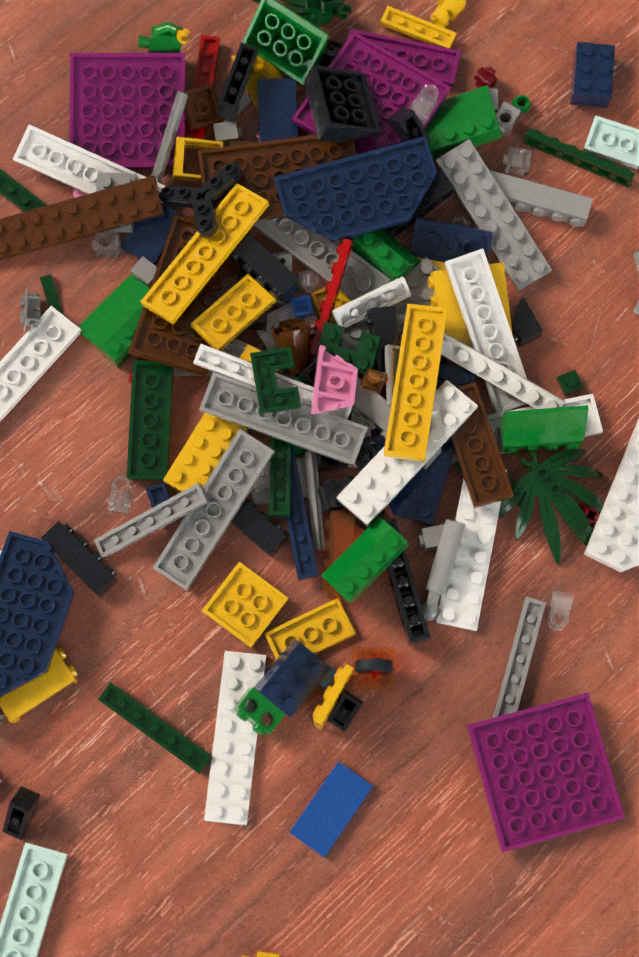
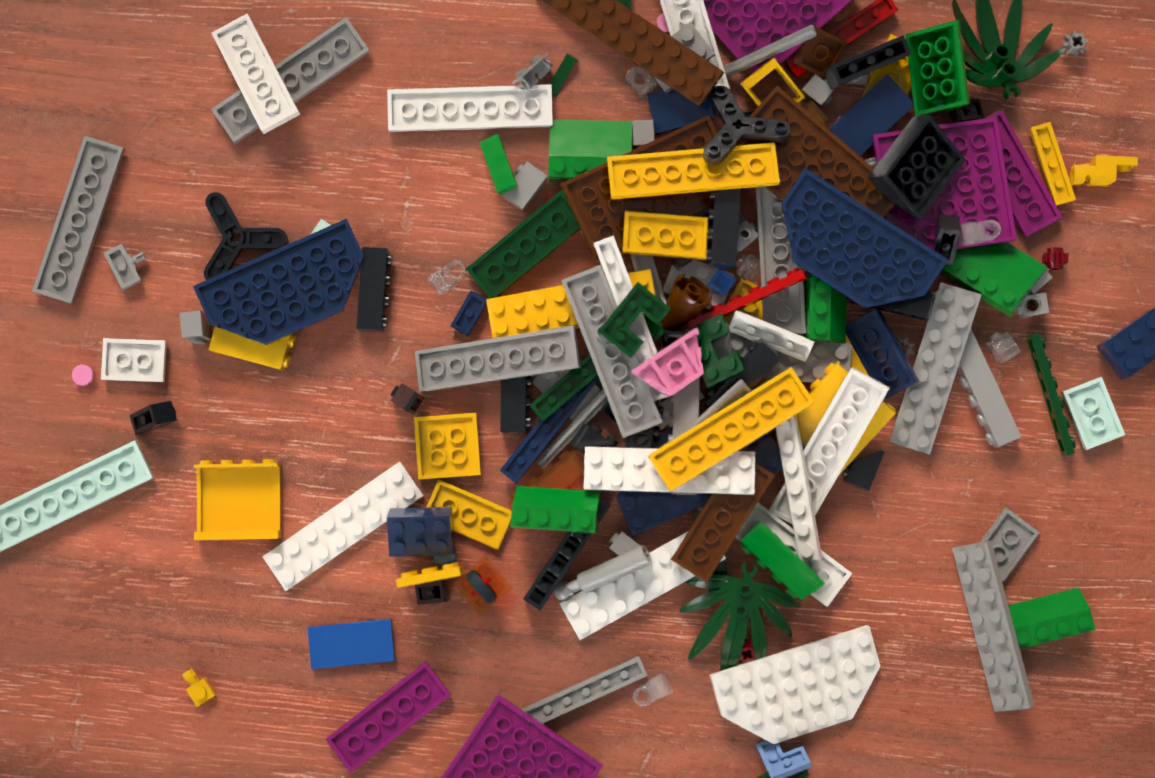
camera: 55 degrees right, 10 degrees up
(73, 389) = (498, 164): none -> green tile
(106, 386) = (529, 183): none -> light grey brick
(144, 801) = (238, 500): none -> yellow panel
(151, 520) = (447, 319): light grey plate -> none
(155, 728) = (297, 460): dark green plate -> none
(182, 601) = (406, 398): none -> slope
(261, 707) = (377, 528): green brick -> none
(374, 380) = (705, 394): clear orange plate -> none
(412, 829) = (388, 716): none -> magenta plate
(522, 99) = (1064, 307): green plate -> none
(569, 383) = (846, 546): dark green plate -> none

